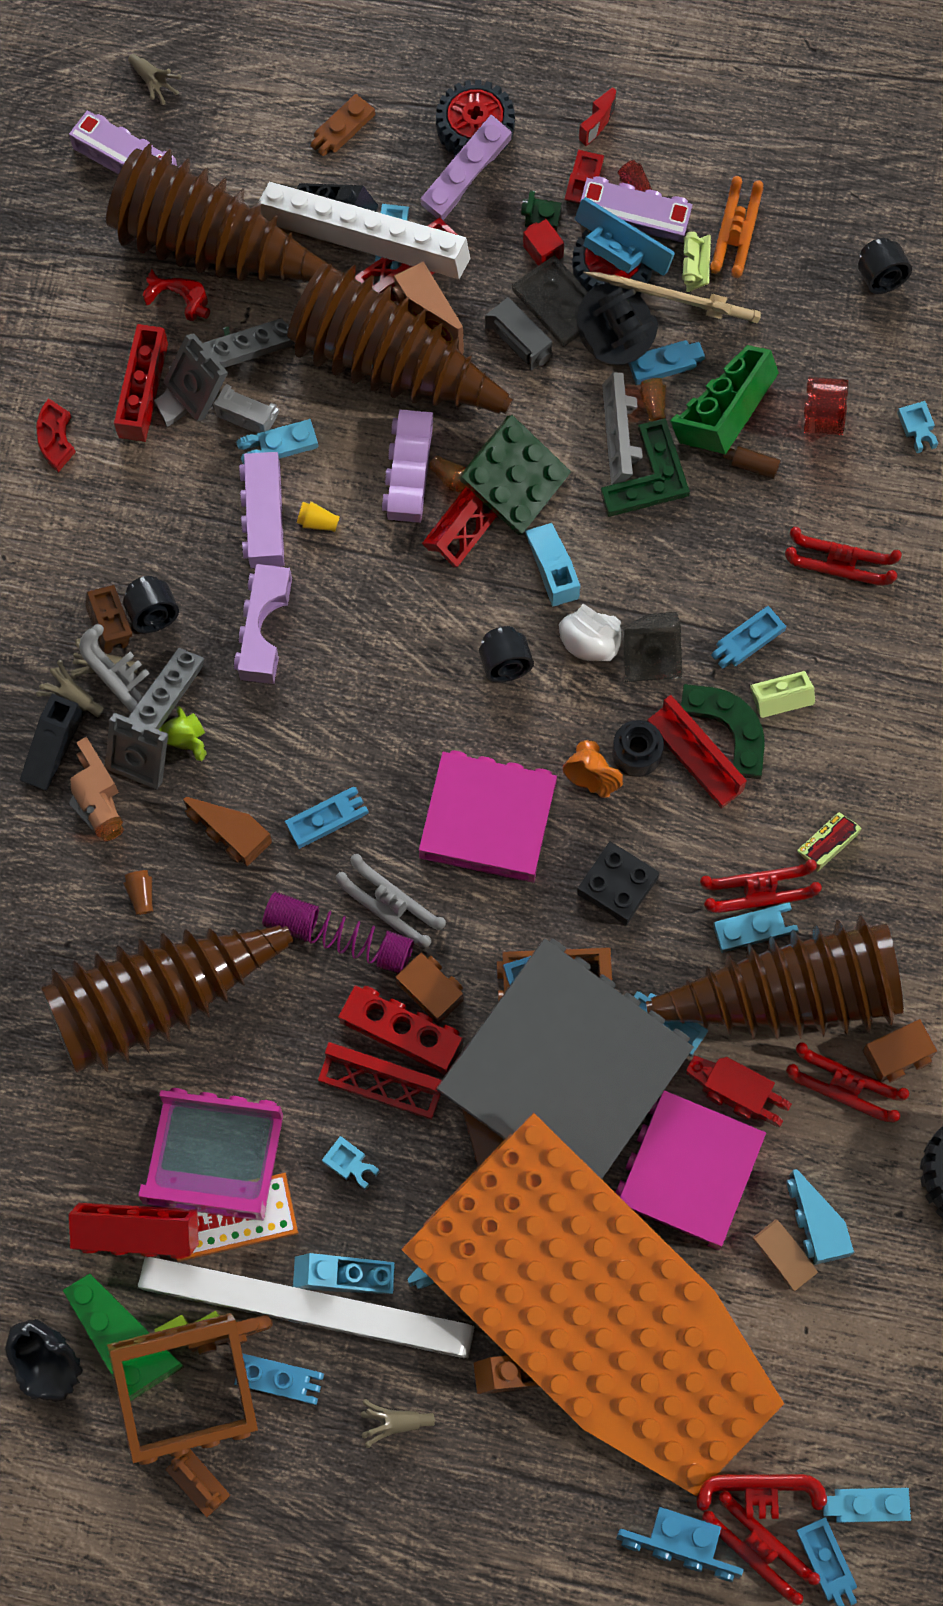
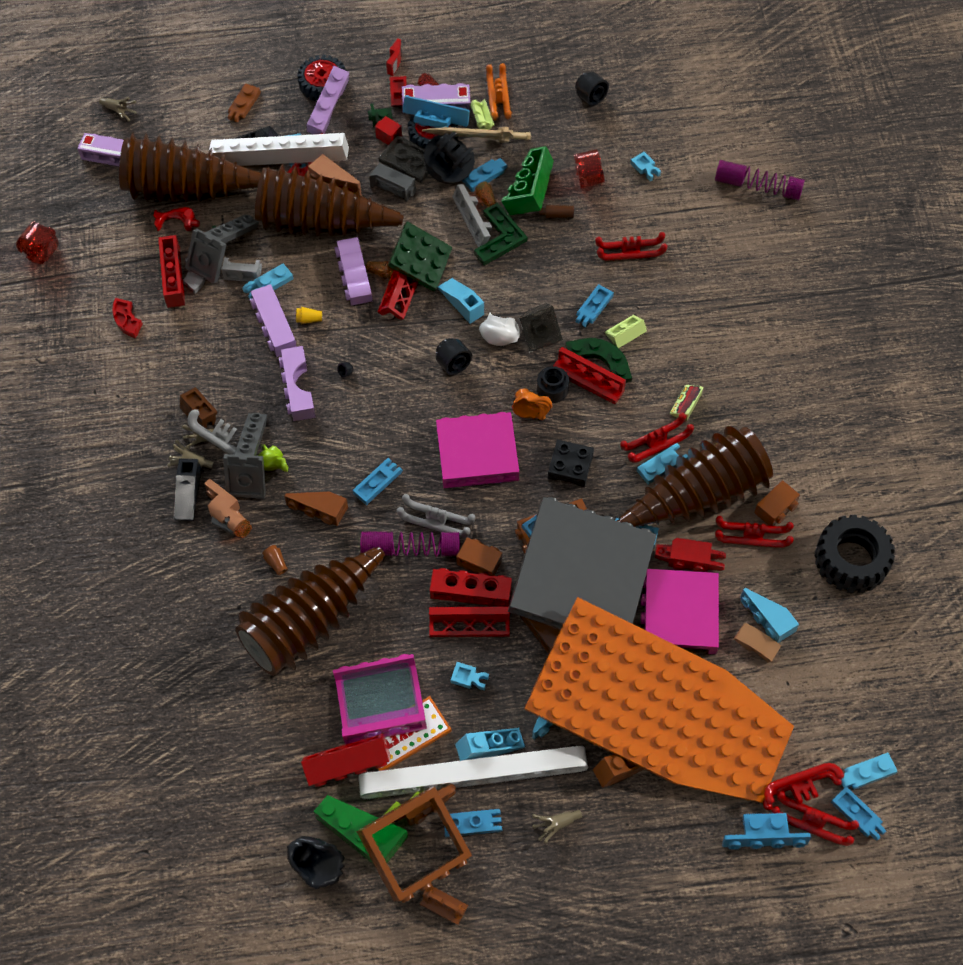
camera: 20 degrees left, 10 degrees down
(150, 604) = (222, 392): black piece -> none
(342, 622) = (345, 369): none -> black hinge

